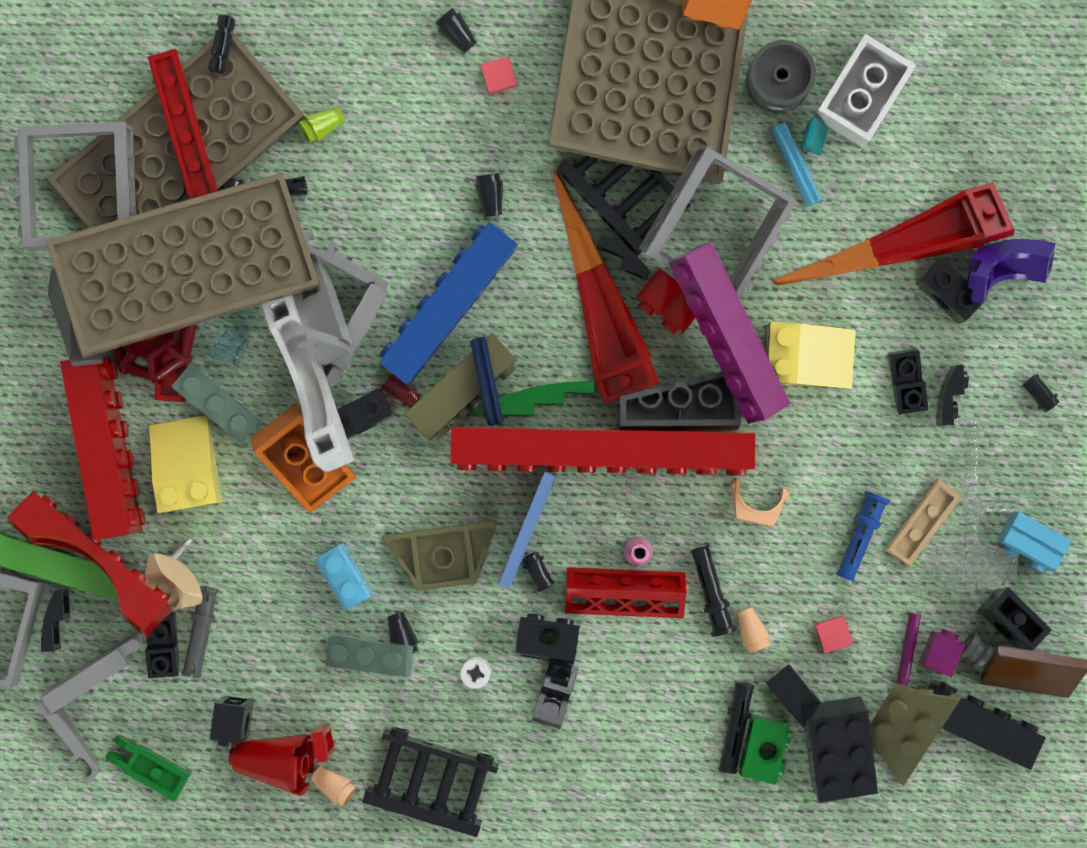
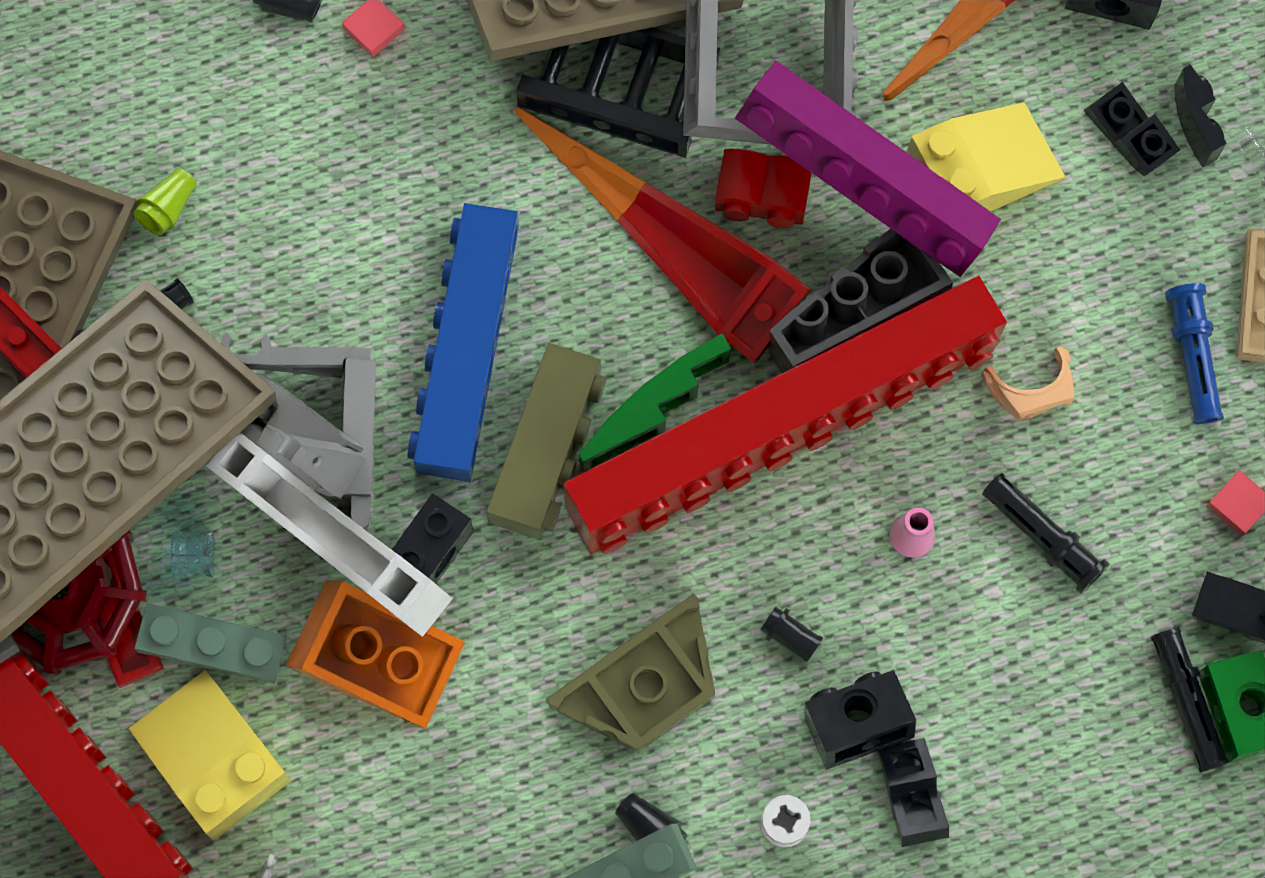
camera: 30 degrees left, 15 degrees down
(344, 576) = (523, 785): medium azure brick -> none
(401, 391) = (465, 491): clear red pin -> none
(486, 381) = (576, 404): dark blue axle -> none
(490, 193) = (444, 173): black cone -> none
(526, 530) = (745, 576): medium blue tile -> none
(626, 588) = (926, 584): red fence -> none
(631, 263) = (684, 163): black slope -> none
(752, 631) = (1131, 556): light nougat cone -> none

